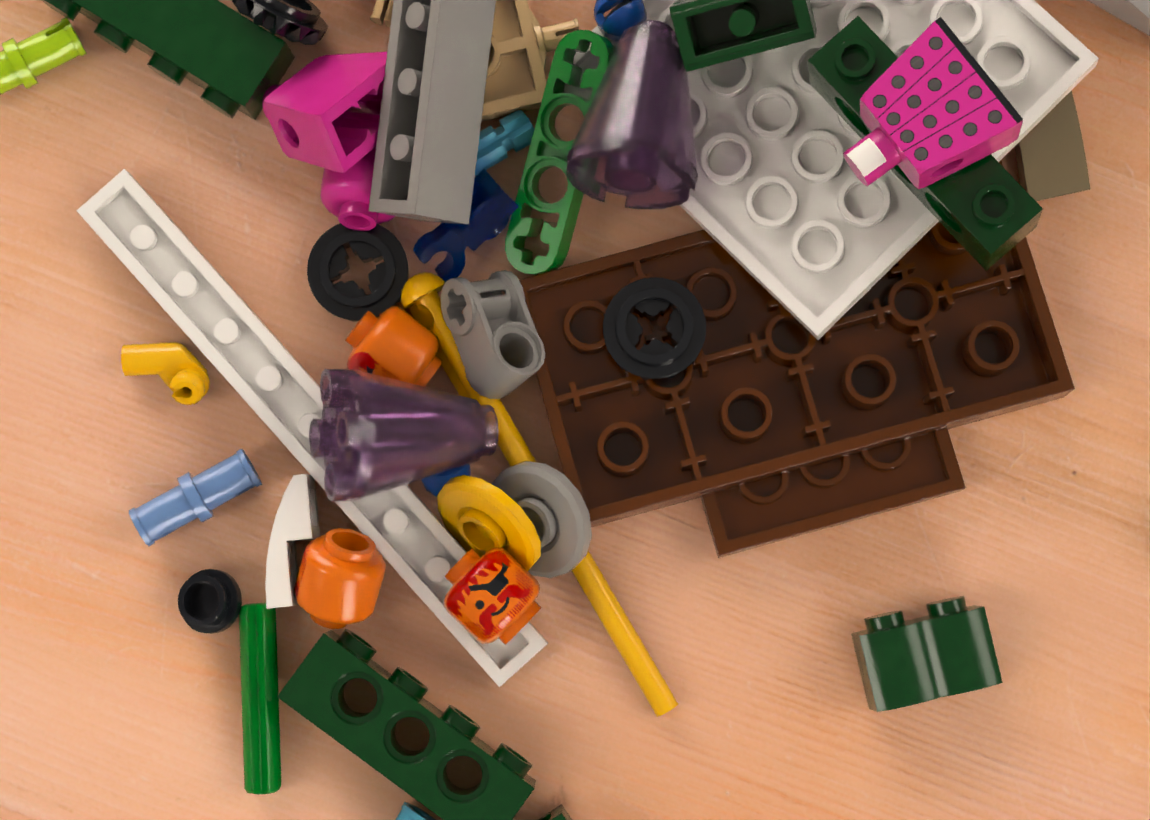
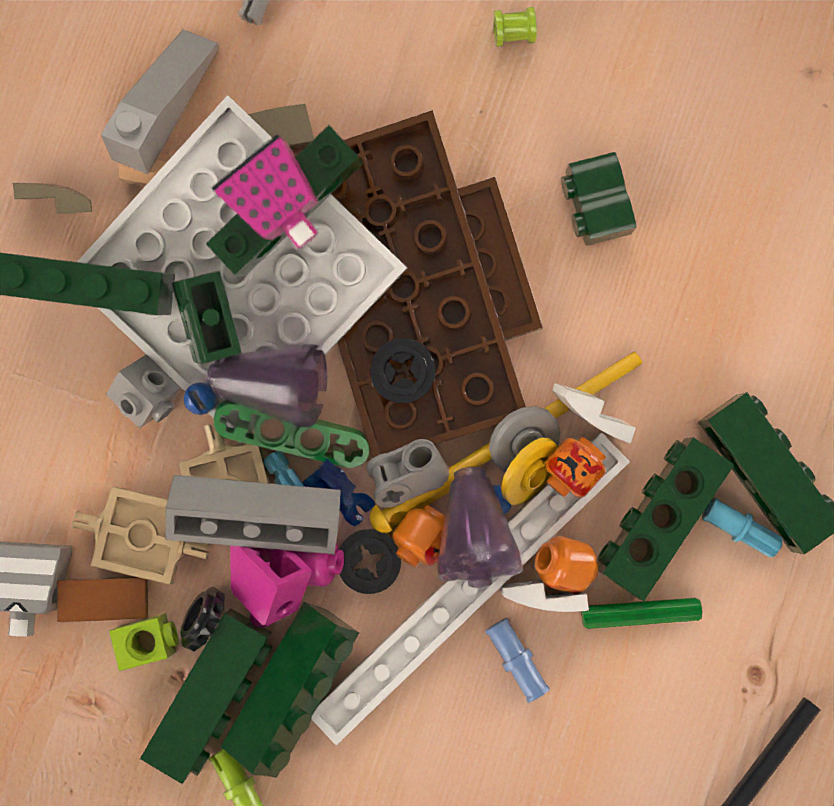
camera: 90 degrees left, 0 degrees up
(163, 141) = (289, 691): none -> dark green brick
(173, 364) = (432, 678): yellow arm -> none
(210, 601) = (582, 647): black plate -> none
(586, 621) = (589, 409): none -> white slope

